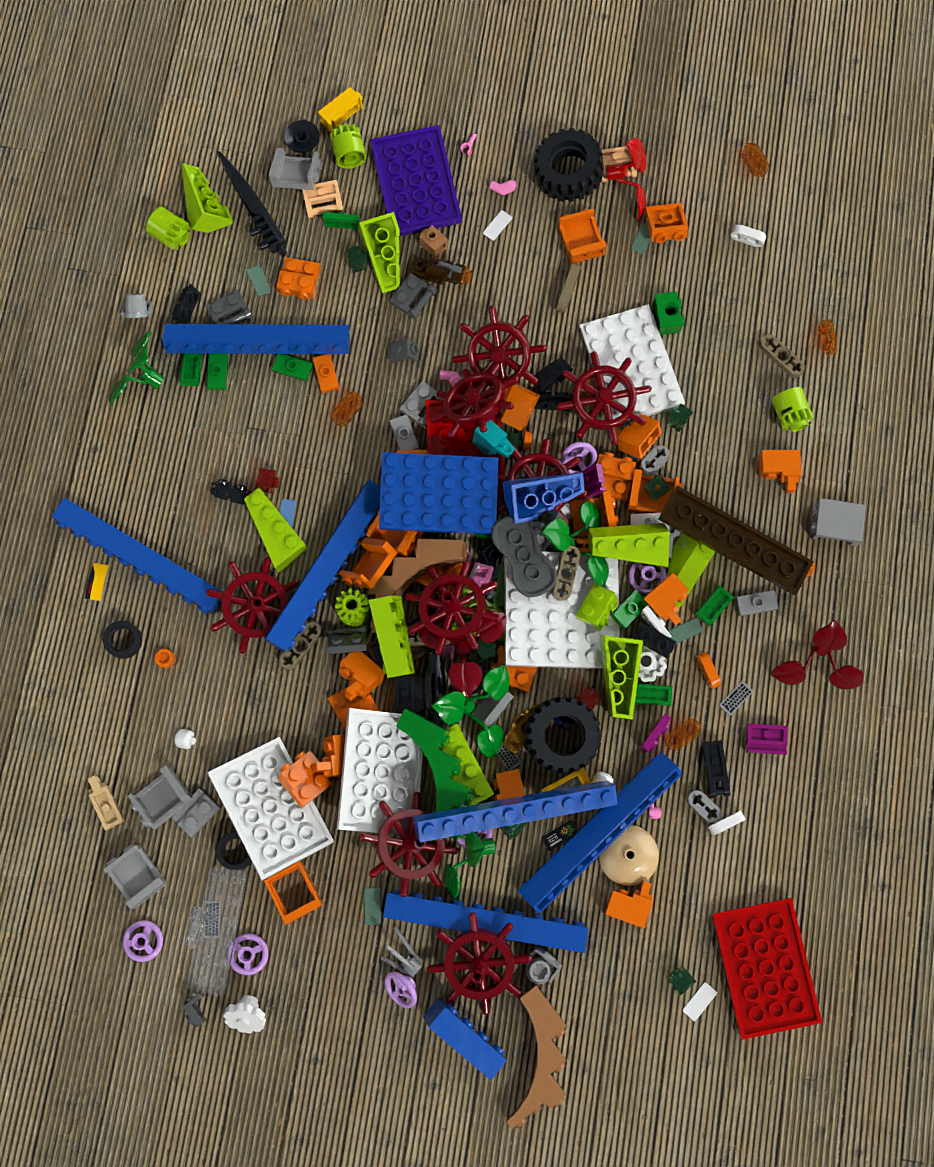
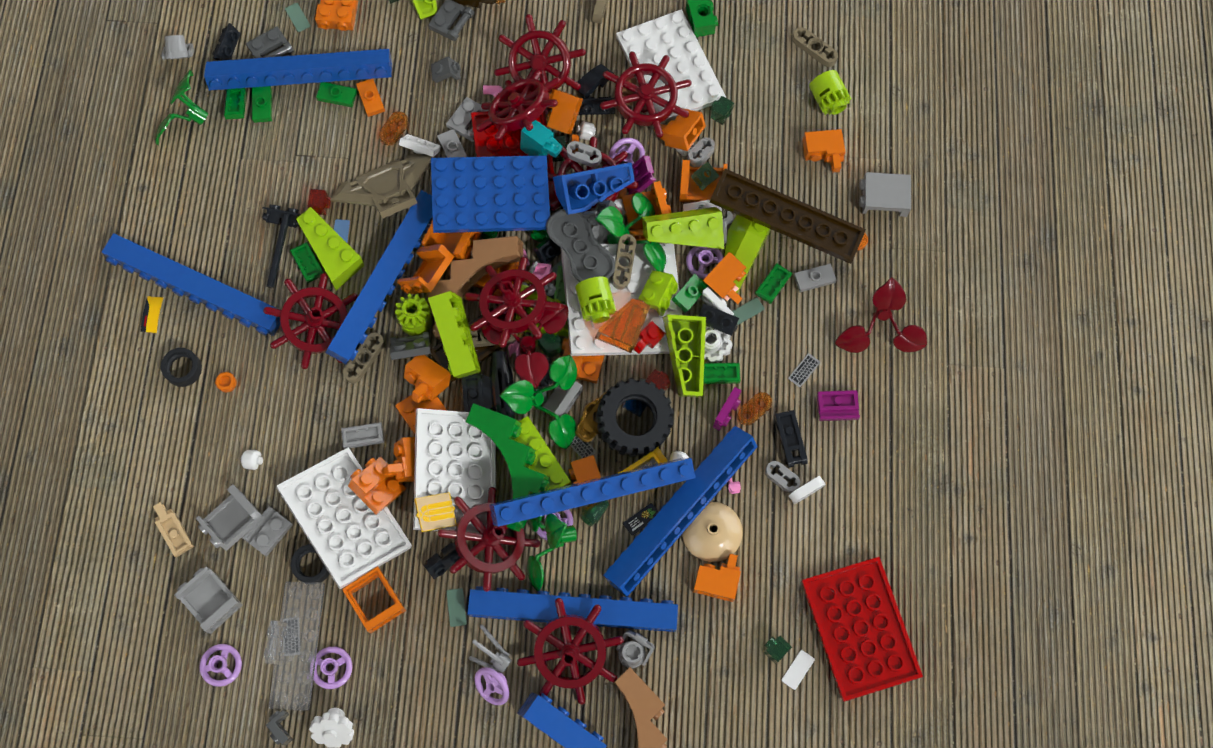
camera: 10 degrees left, 5 degrees down
(224, 528) = (278, 251): none -> black bar
(251, 542) = (307, 262): none -> green plate
(294, 725) = (362, 435): none -> light grey plate
(335, 470) = (386, 186): none -> dark tan plate
(357, 864) = (439, 565): none -> black hinge
(359, 814) = (435, 512): none -> piece
(371, 429) = (419, 145): none -> white plate
(534, 613) = (595, 299): none -> lime gear
(537, 454) = (584, 154): none -> light grey beam
(540, 426) = (586, 130): none -> white piece
(562, 641) = (624, 326): none -> clear orange slope
(585, 653) = (649, 336): none -> red plate
(617, 475) = (666, 168): orange plate -> none
(708, 670) = (774, 345): orange beam -> none
(829, 342) = (859, 29): clear orange plate -> none

